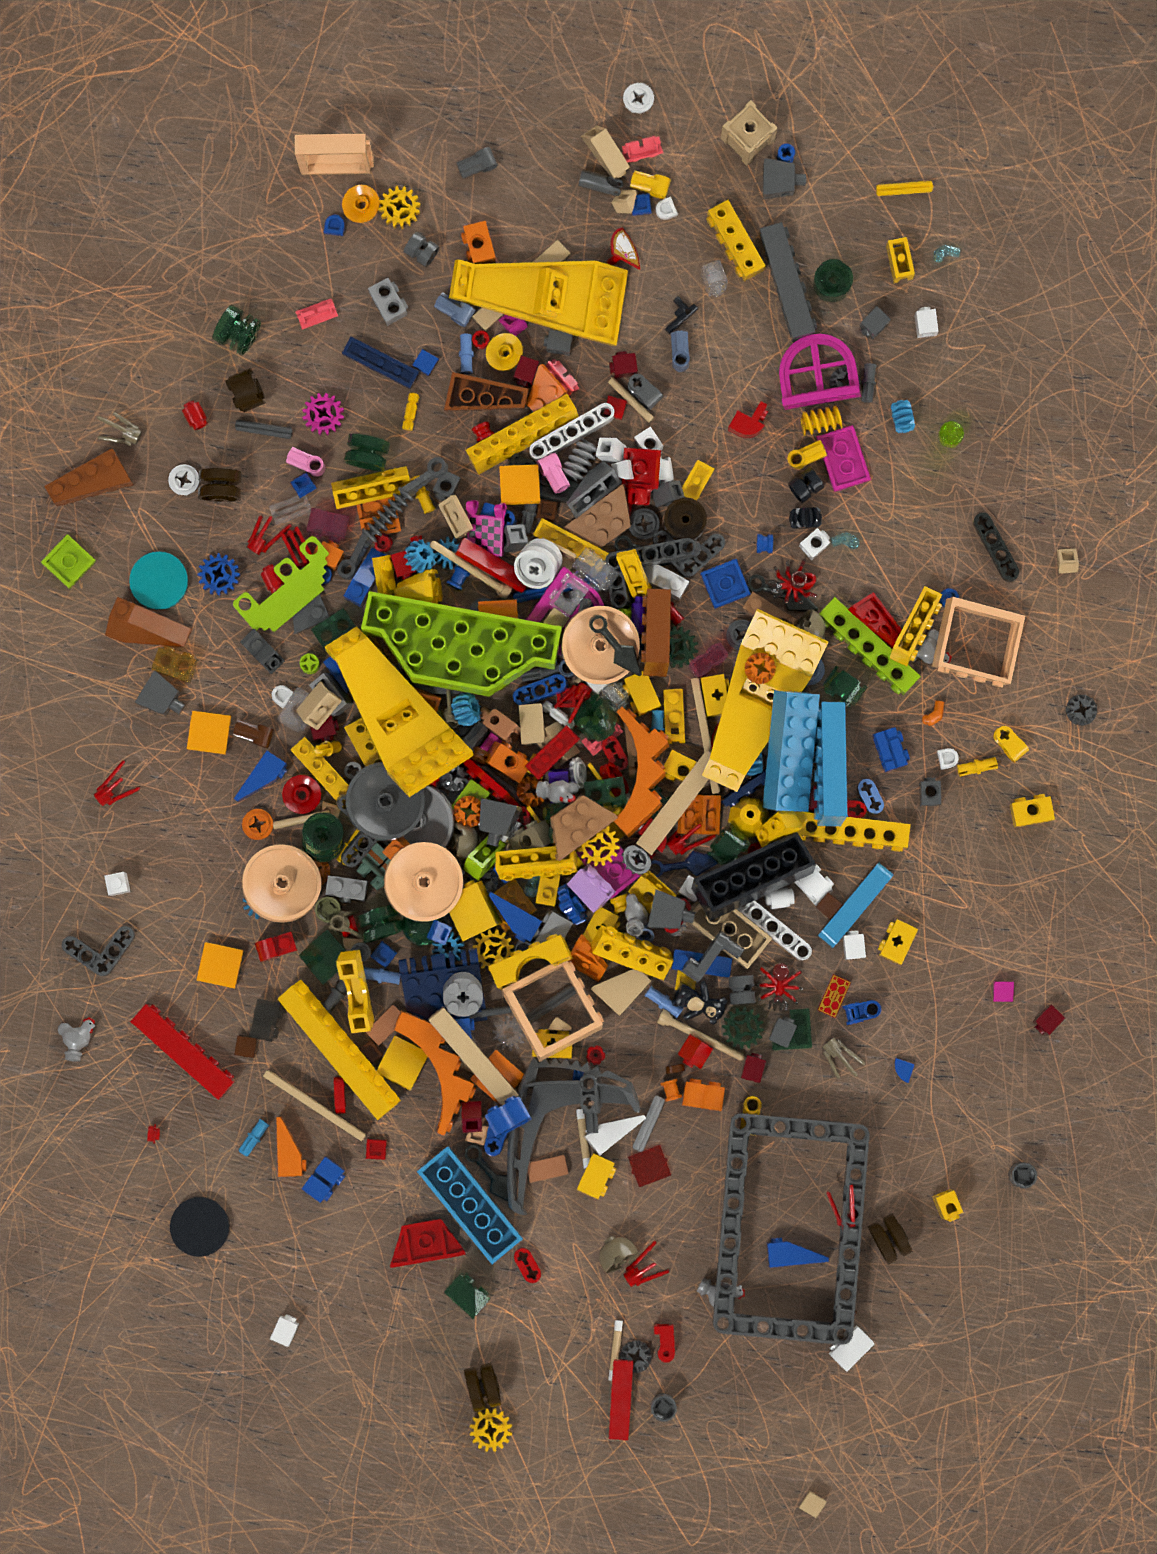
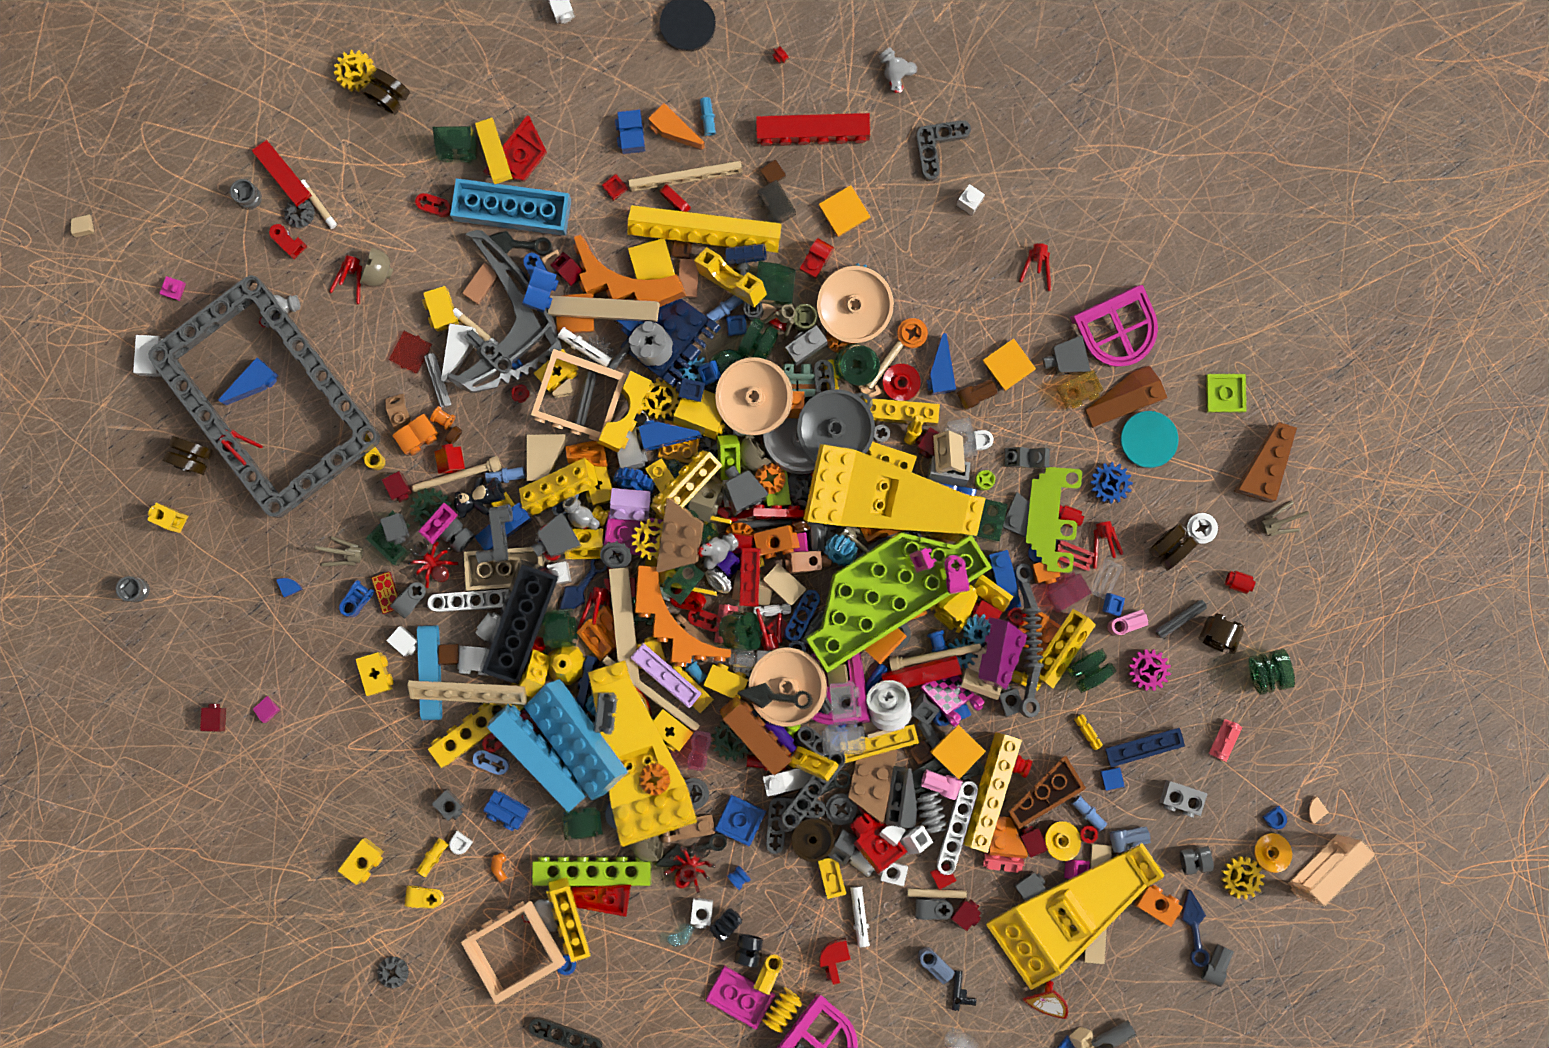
camera: 135 degrees right, 0 degrees up
(91, 705) = (1109, 307): none -> dark pink window
(299, 204) = (1316, 810): none -> light nougat tile
(326, 998) = (746, 254): none -> dark blue axle
(402, 606) = (956, 577): none -> dark pink piece
(415, 642) = (922, 559): none -> dark pink tile
(421, 522) = (1002, 653): none -> magenta wedge
(442, 1261) = (493, 151): none -> yellow tile
(461, 213) = (1193, 915): none -> dark blue piece
(465, 933) = (690, 389): none -> dark blue bracket
(514, 1043) = (601, 358): none -> white pin
(530, 784) = (744, 541): none -> red tile
(682, 737) = (665, 675): none -> lavender tile
(701, 1126) = (397, 412): none -> medium nougat bracket
(707, 428) = (859, 917): none -> white pin
(745, 752) = (605, 707): none -> dark grey hinge
(747, 1008) = (438, 523): none -> dark pink slope
(786, 1387) = (172, 288): none -> dark pink tile
(824, 974) = (406, 601): none -> dark grey piece
(840, 860) = (467, 692): none -> tan tile

